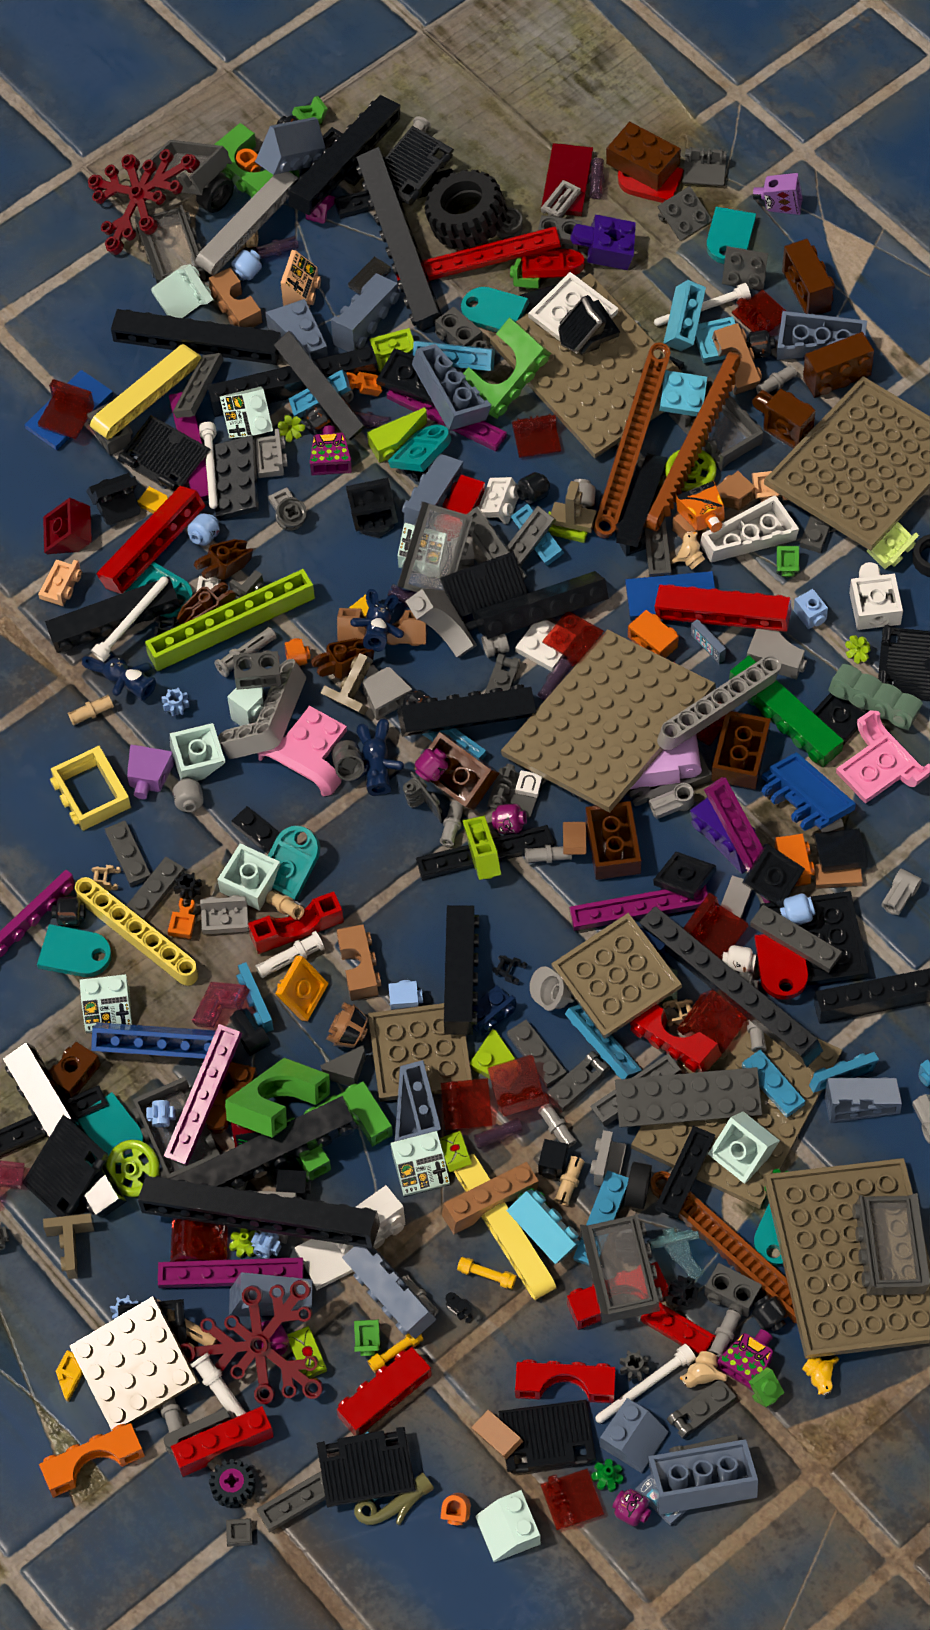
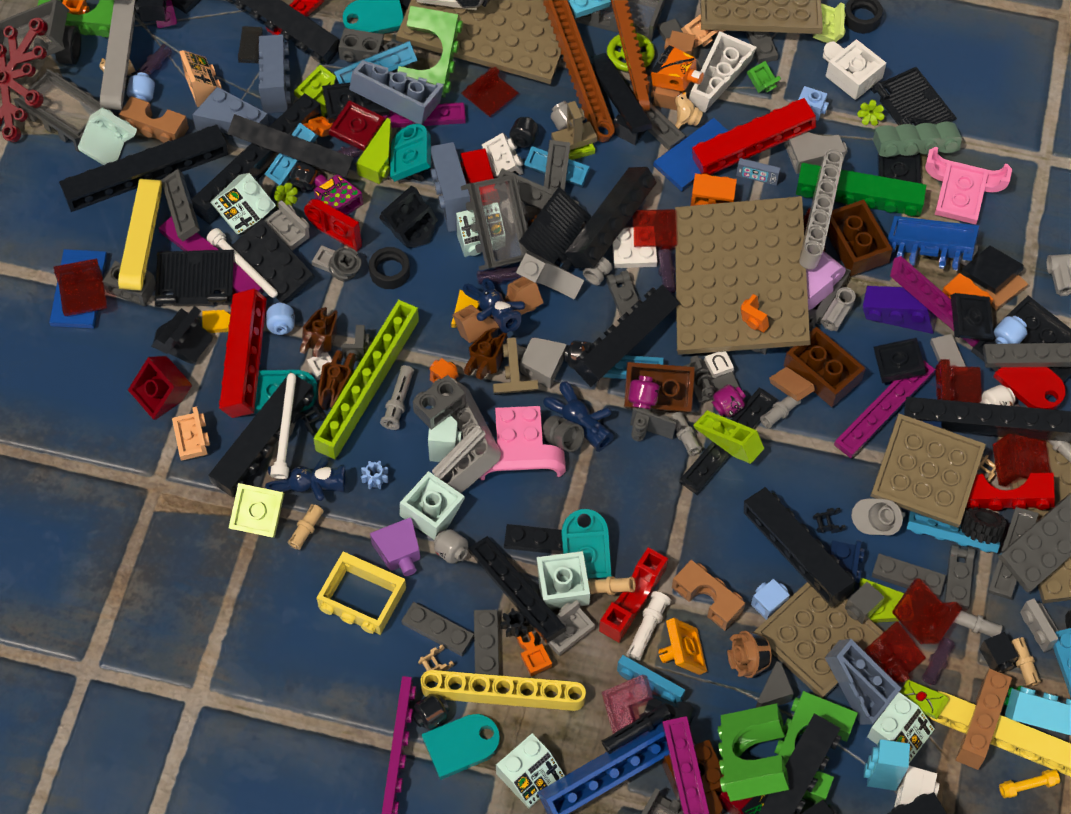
camera: 40 degrees left, 0 degrees up
(61, 673) = (256, 510): none -> yellowish green plate
(202, 1022) = (644, 723): none -> black pin
(208, 860) = (517, 589): none -> black tile
(245, 721) = (459, 452): none -> light grey axle
(307, 475) = (334, 223): none -> red tile
(325, 525) = (385, 254): none -> black tyre
(373, 1172) = (887, 764): none -> medium azure brick
(393, 399) = (356, 125): none -> dark red tile
(471, 1046) = (864, 603): none -> dark grey brick
(578, 750) = (752, 316): none -> orange bracket
(629, 1051) = (983, 525): none -> black tyre
(745, 467) = (665, 29): none -> dark grey tile

